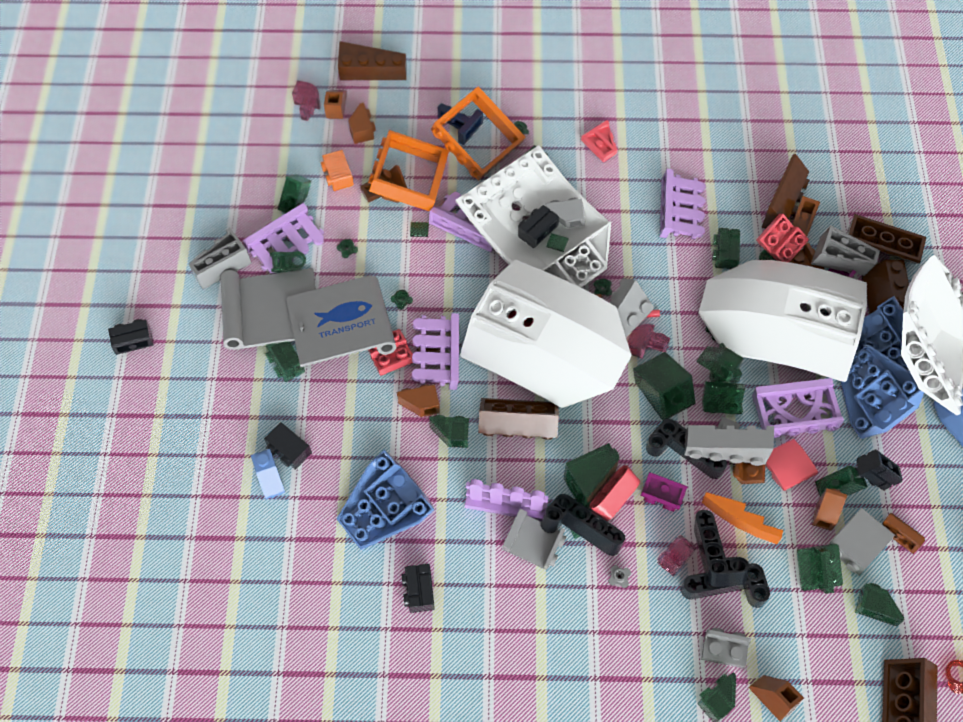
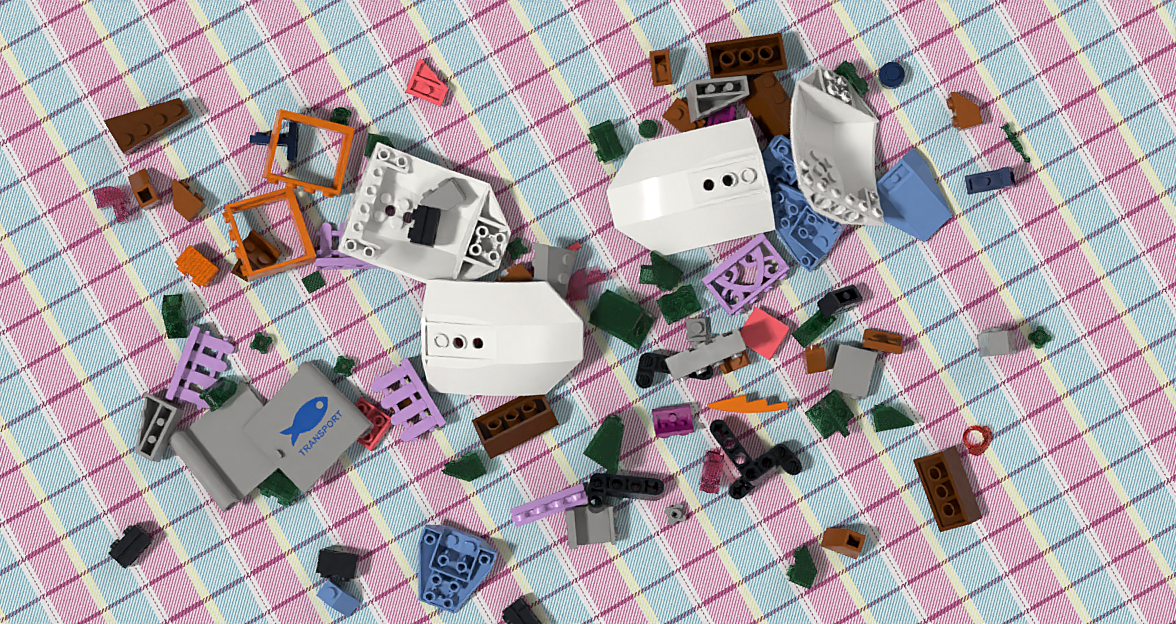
camera: 30 degrees left, 25 degrees up
(420, 400) = (424, 456): dark orange slope -> none
(557, 242) = (451, 229): clear green piece -> none
(615, 493) = (634, 446): coral beam -> none
(669, 211) = (533, 109): lavender fence -> none
(725, 648) = (787, 525): light grey bracket -> none
(782, 239) = (653, 109): coral slope -> none
(788, 191) = (633, 53): reddish brown slope -> none

